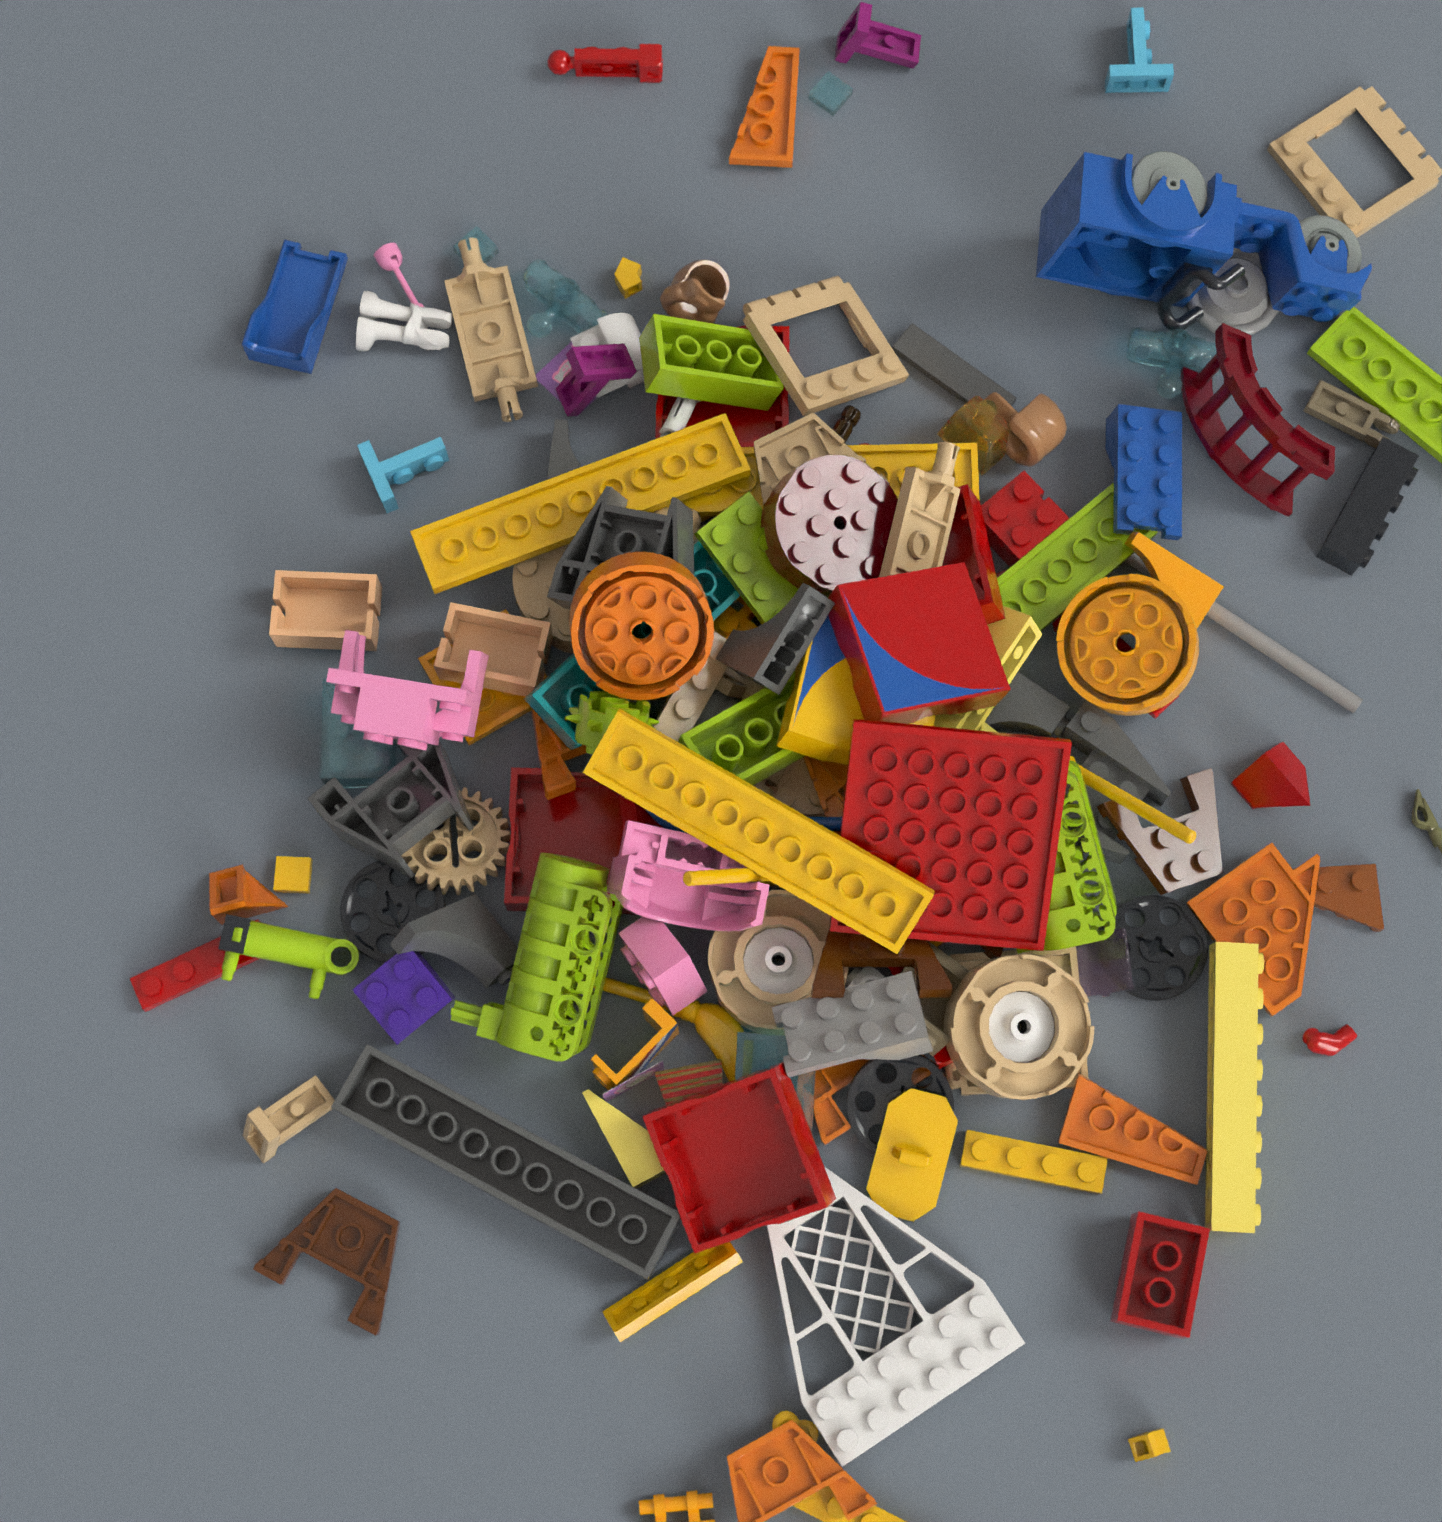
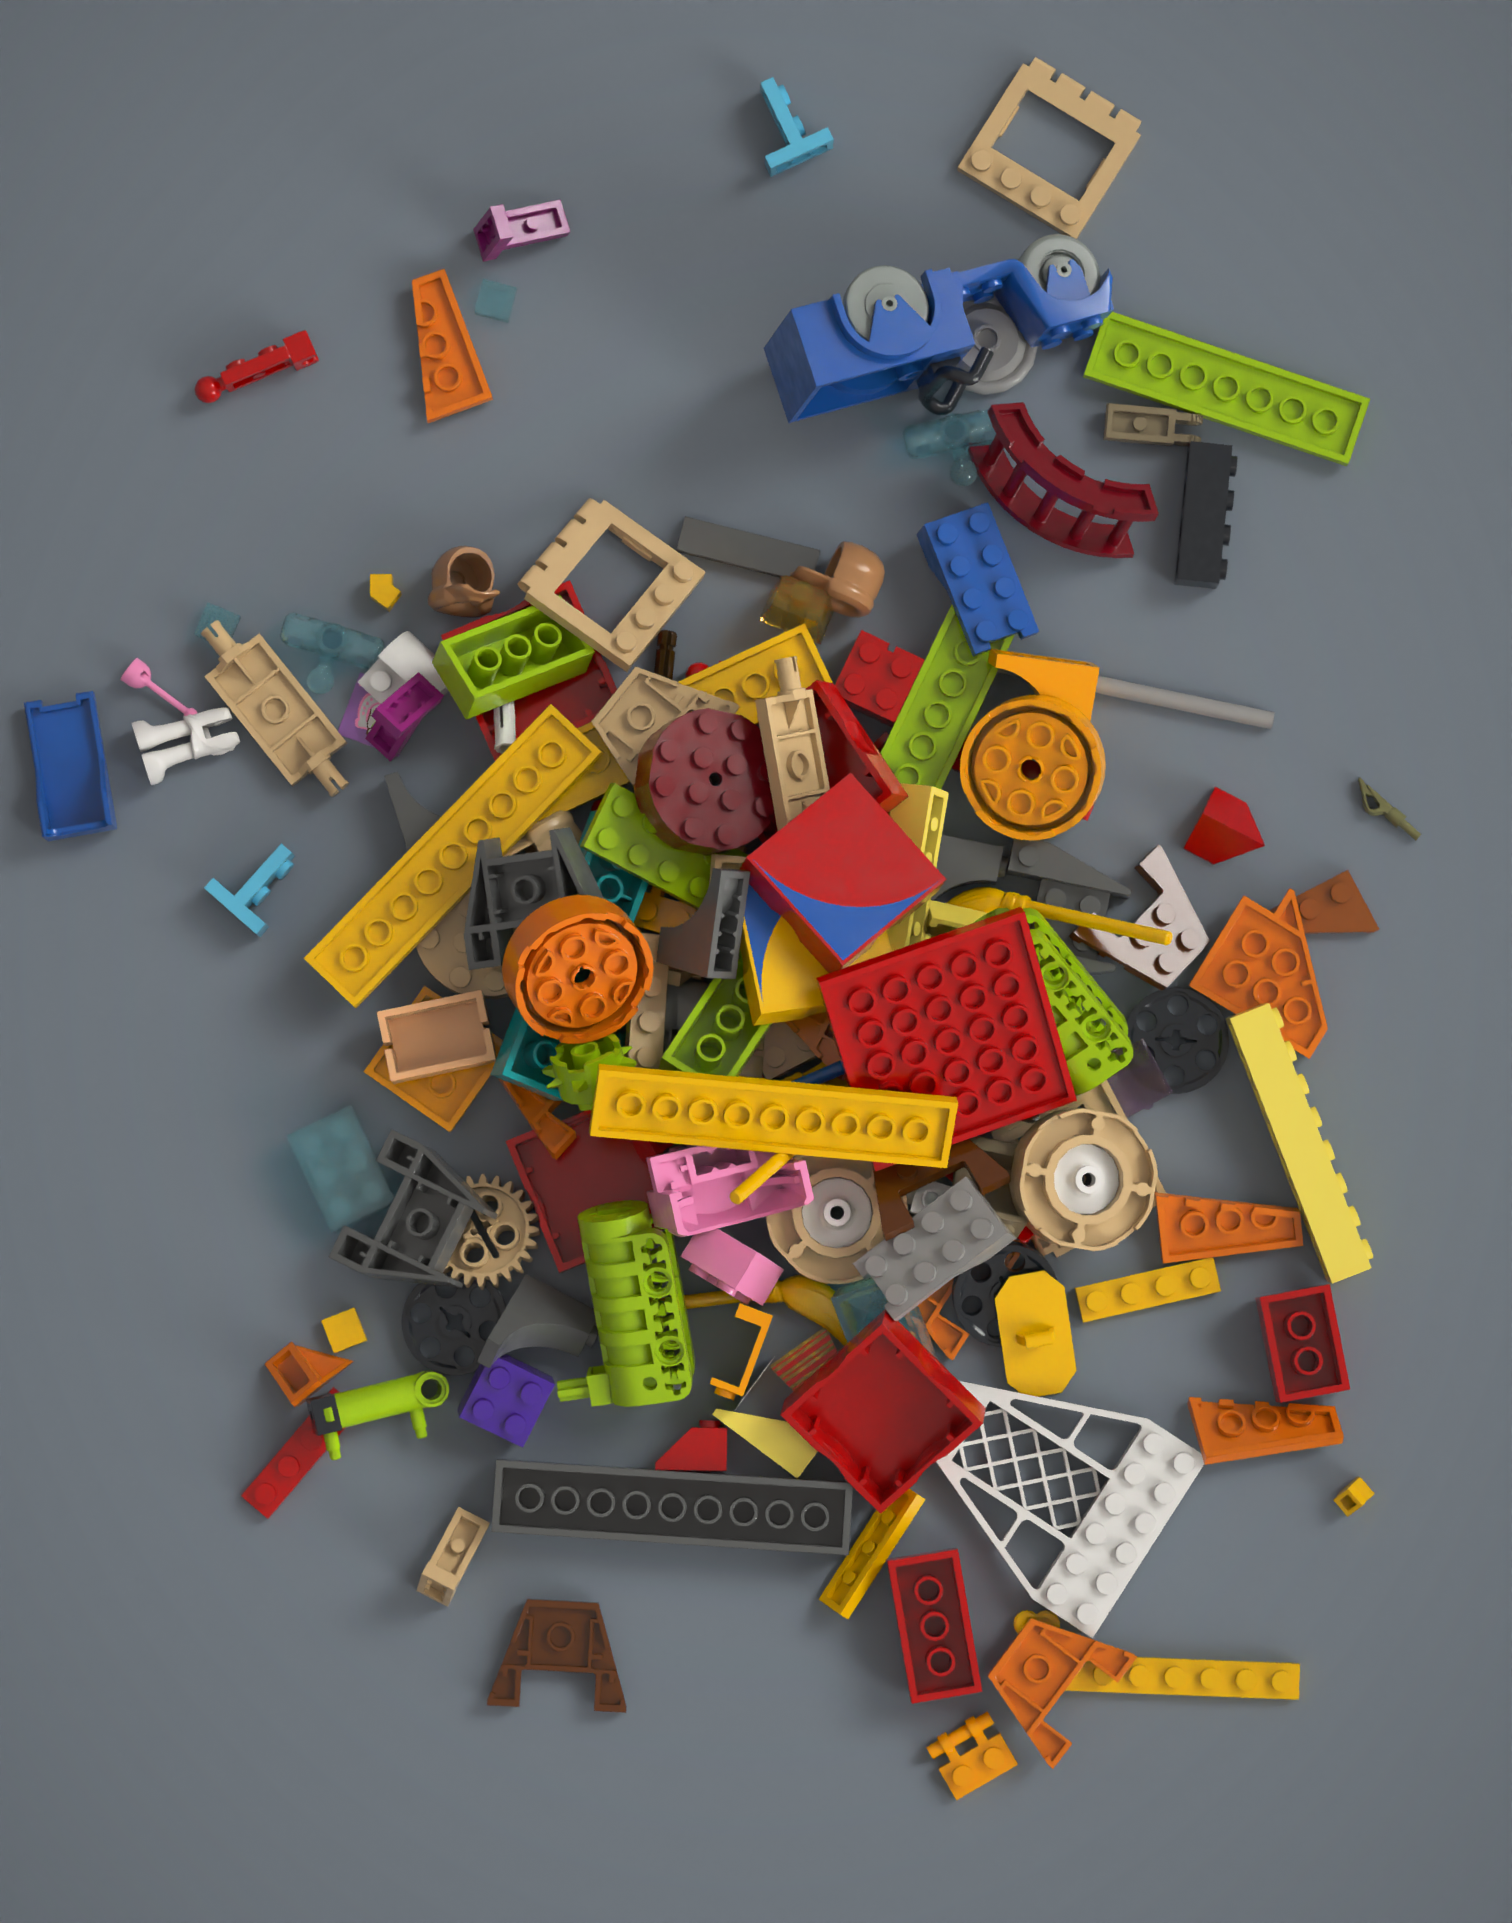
camera: 25 degrees left, 10 degrees up
(323, 607) = (254, 1065): light nougat piece -> none
(404, 708) = (386, 1141): bright pink piece -> none
(555, 1121) = (698, 1449): none -> red slope
(697, 1385) = (934, 1625): none -> red brick
(1085, 1339) = (1247, 1431): none -> orange wing
(1327, 1043) = (1369, 1061): red arm -> none

